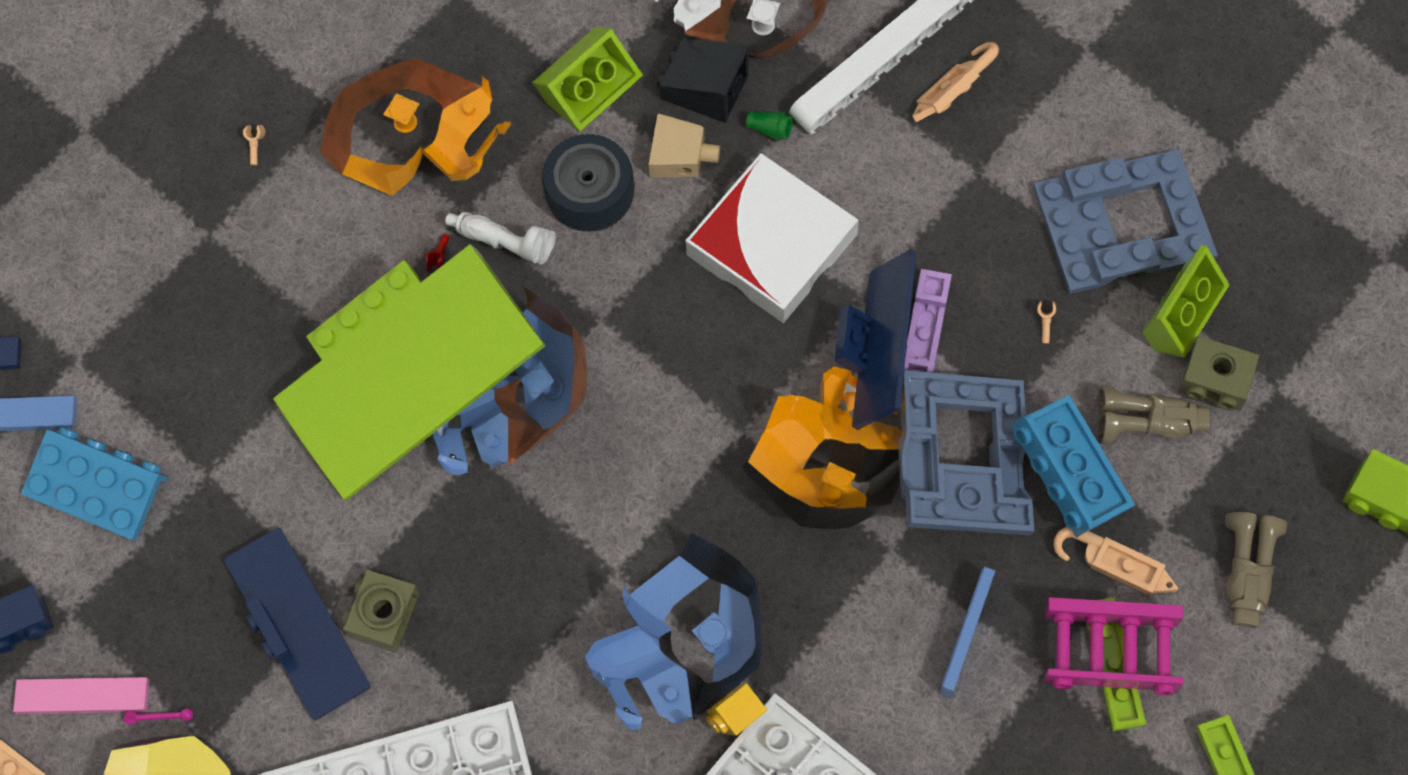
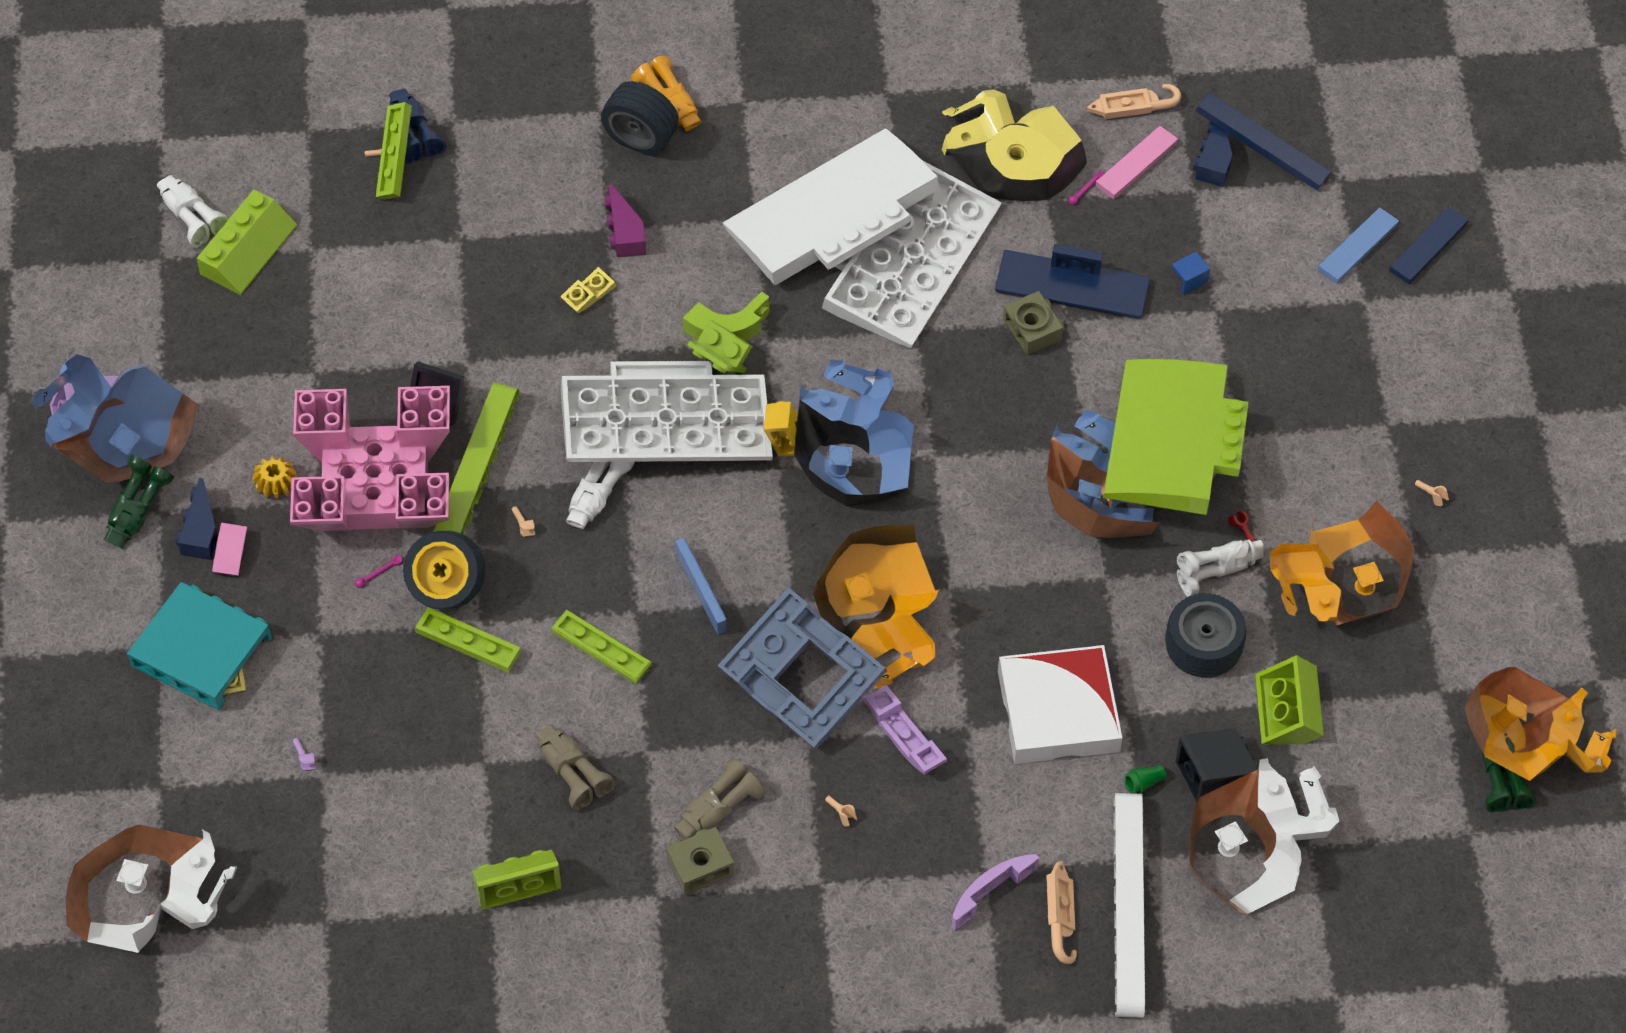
camera: 130 degrees right, 10 degrees down
(93, 482) = (1268, 252): dark azure bracket -> none
(184, 521) = (1192, 272): none -> blue panel
(679, 149) = (1180, 710): tan torso -> none
(876, 340) = (928, 682): dark blue bracket -> none
(991, 152) = (1016, 868): none -> lavender slope
(1072, 465) = (733, 720): dark azure bracket -> none
(1083, 231) = (877, 889): sand blue piece -> none
(1119, 562) = (653, 701): light nougat plate -> none
(1130, 617) = (614, 666): dark pink fence -> none
(1187, 305) = (760, 880): lime slope -> none

